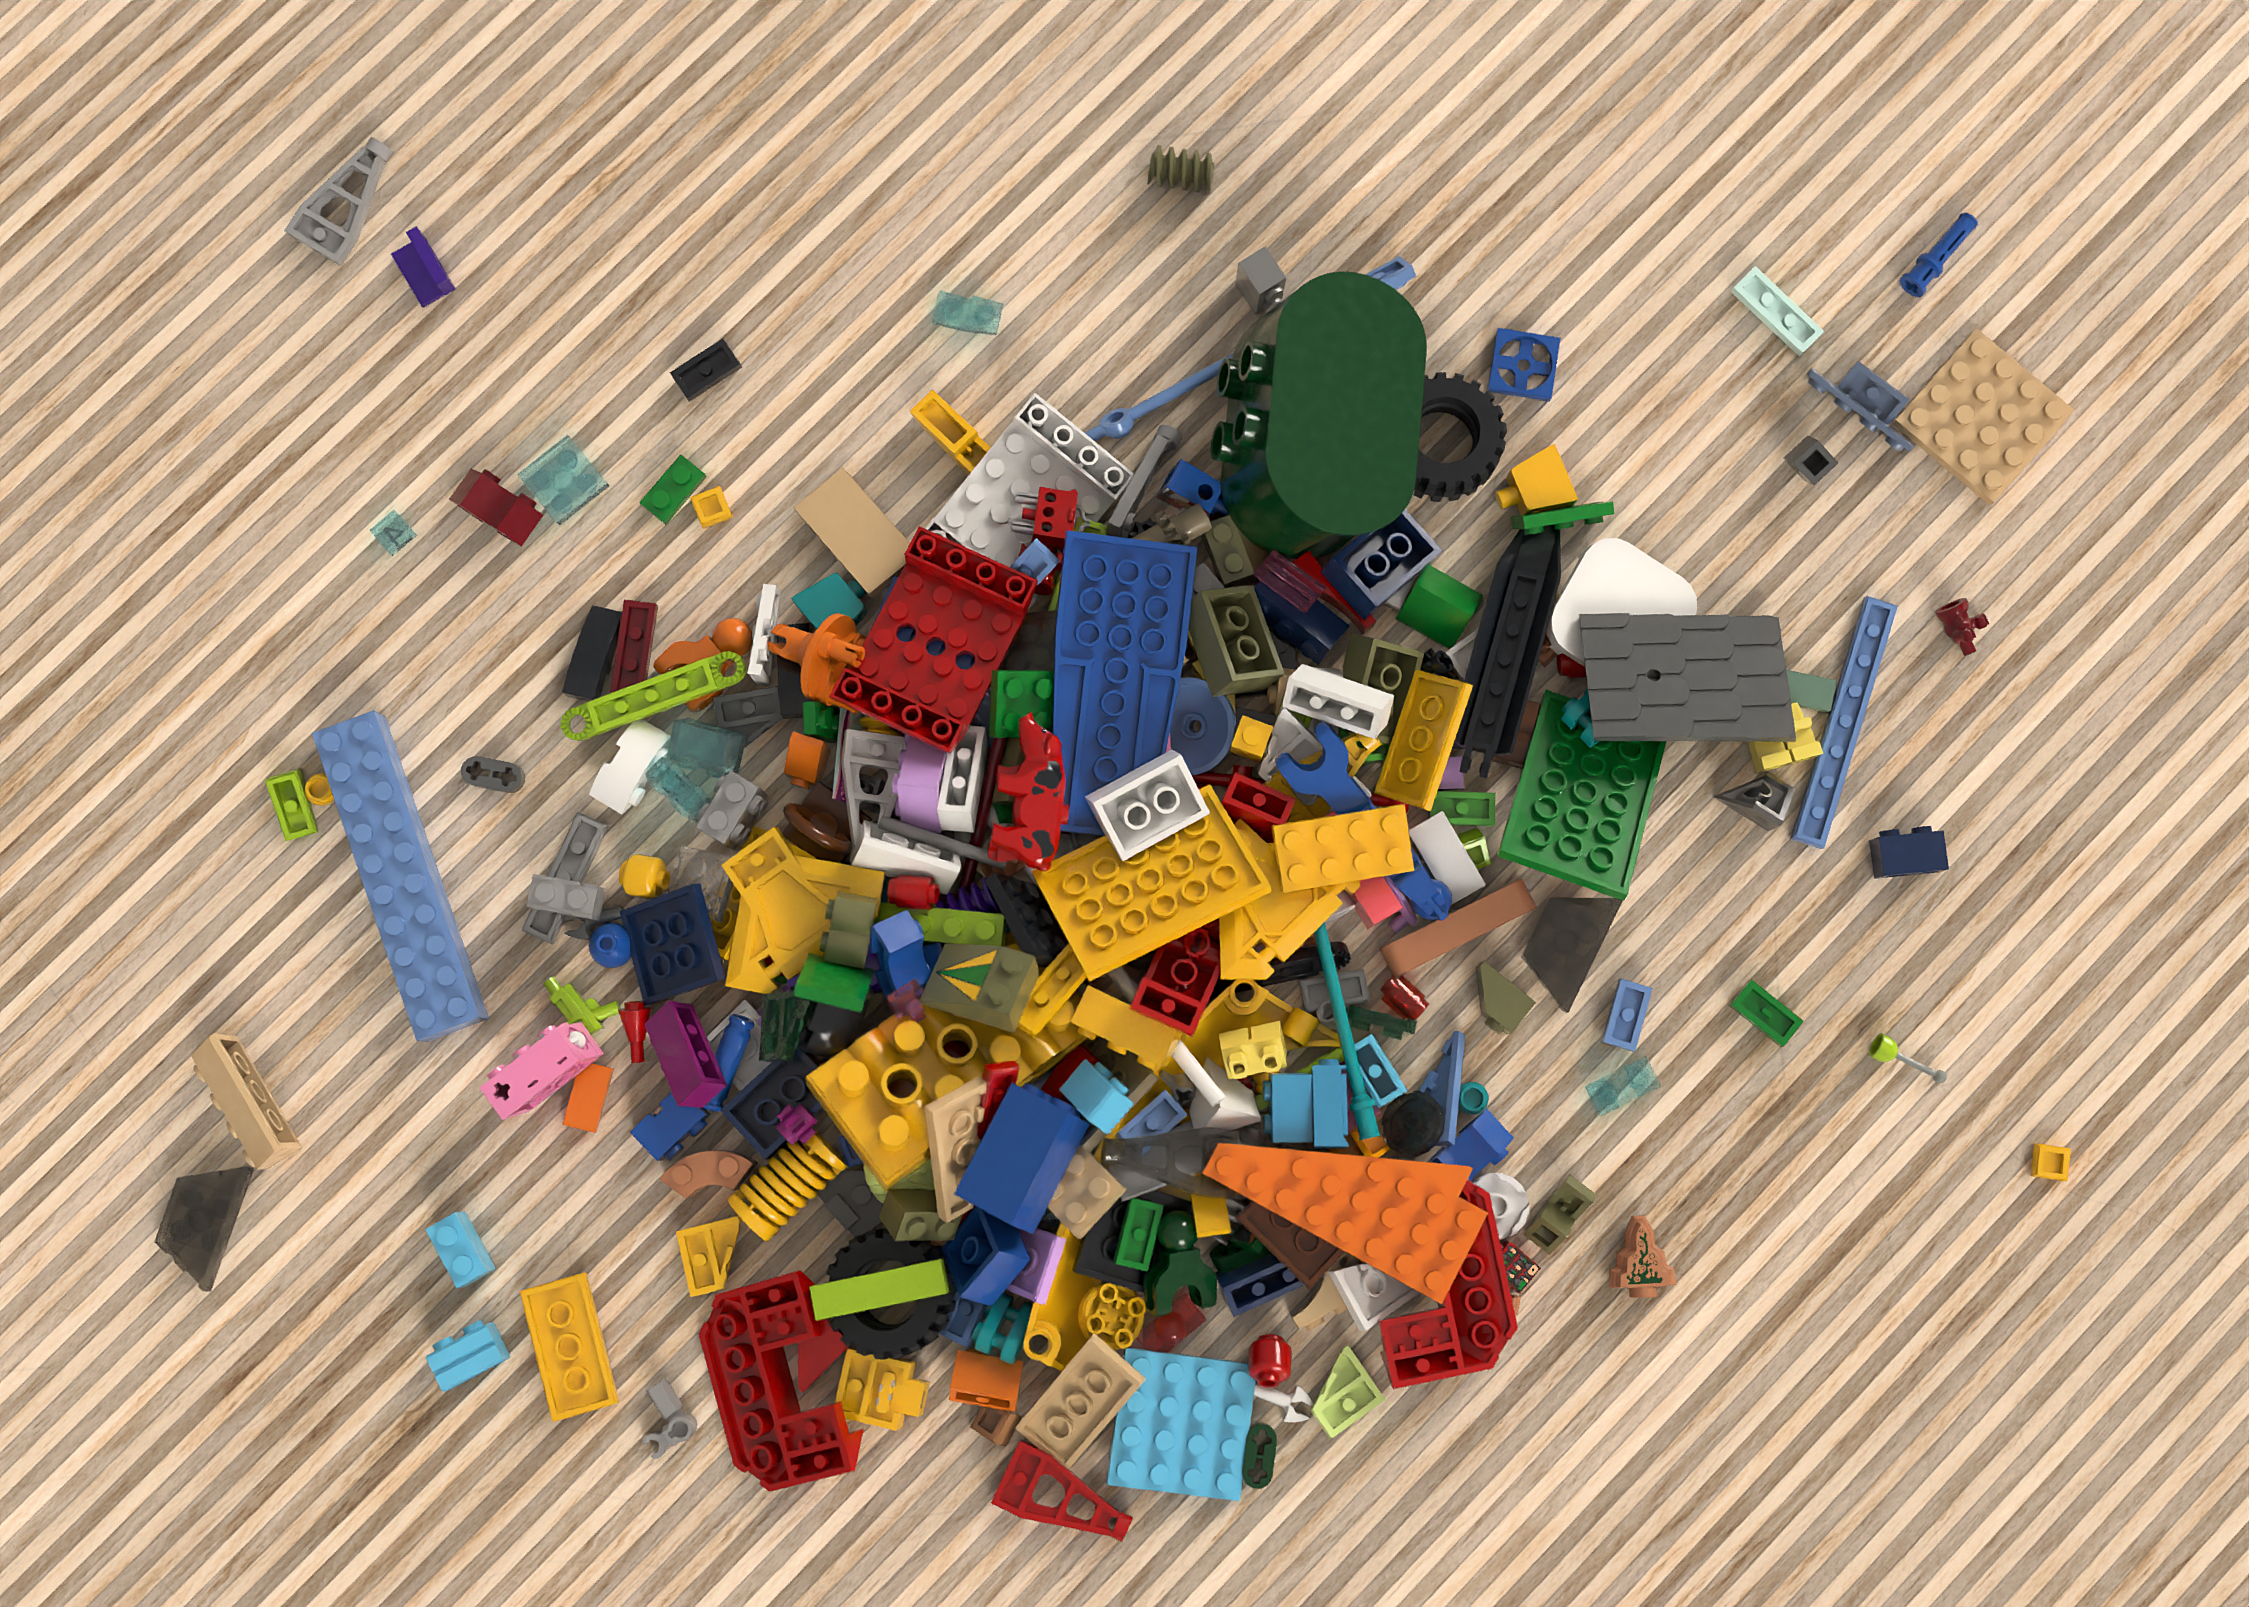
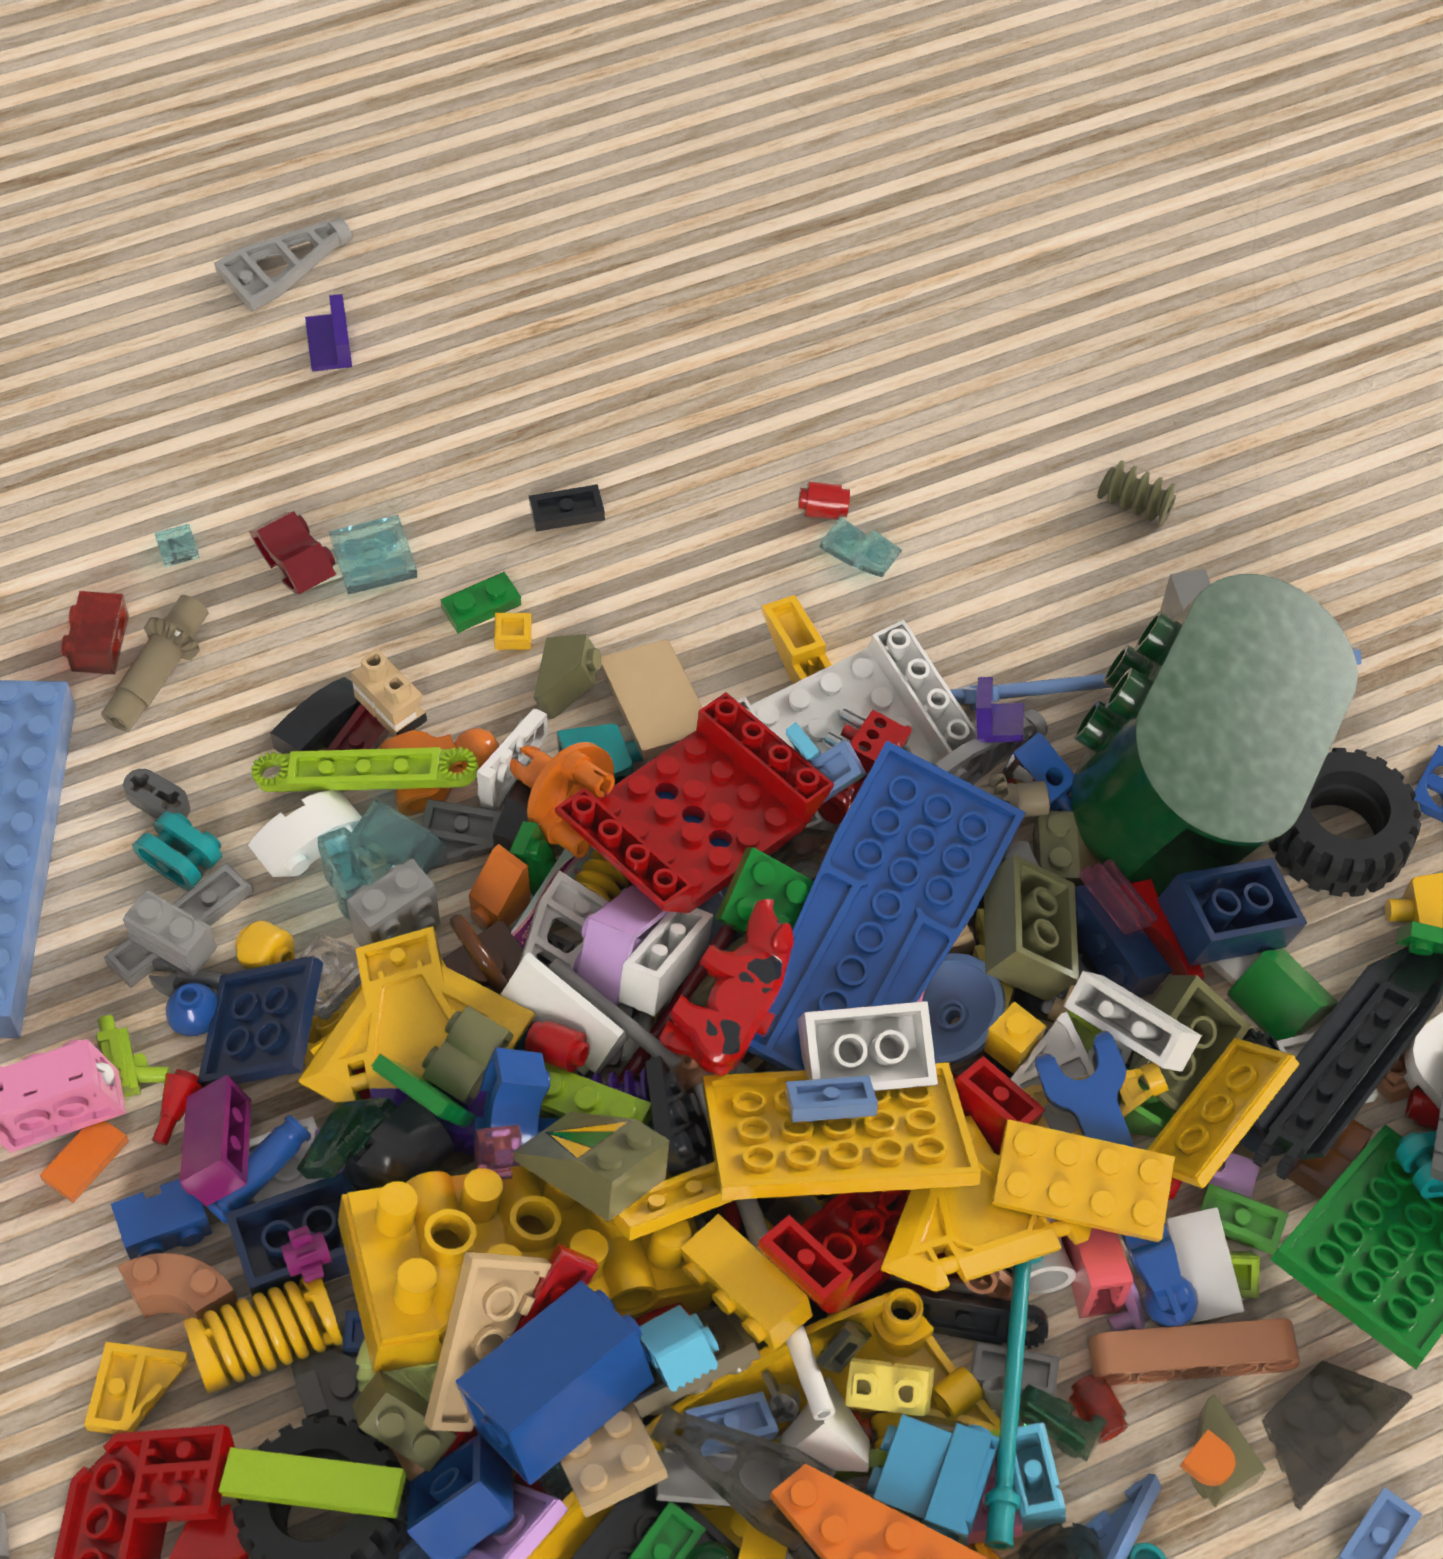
camera: 20 degrees right, 25 degrees down
(369, 647) = (95, 632): none -> clear red brick
(434, 656) = (167, 644): none -> dark tan gear
(523, 802) = (179, 833): none -> teal brick
(642, 621) = (388, 694): none -> tan hips
(773, 536) = (565, 672): none -> olive slope
(920, 278) = (824, 500): none -> red brick
(1001, 548) = (802, 742): none -> medium azure tile
(1137, 863) = (831, 1098): none -> medium blue plate
(1141, 450) = (997, 721): none -> dark purple panel
(1211, 1040) = (843, 1346): none -> pearl dark grey slope
(1496, 1014) = (1210, 1460): none -> orange tile

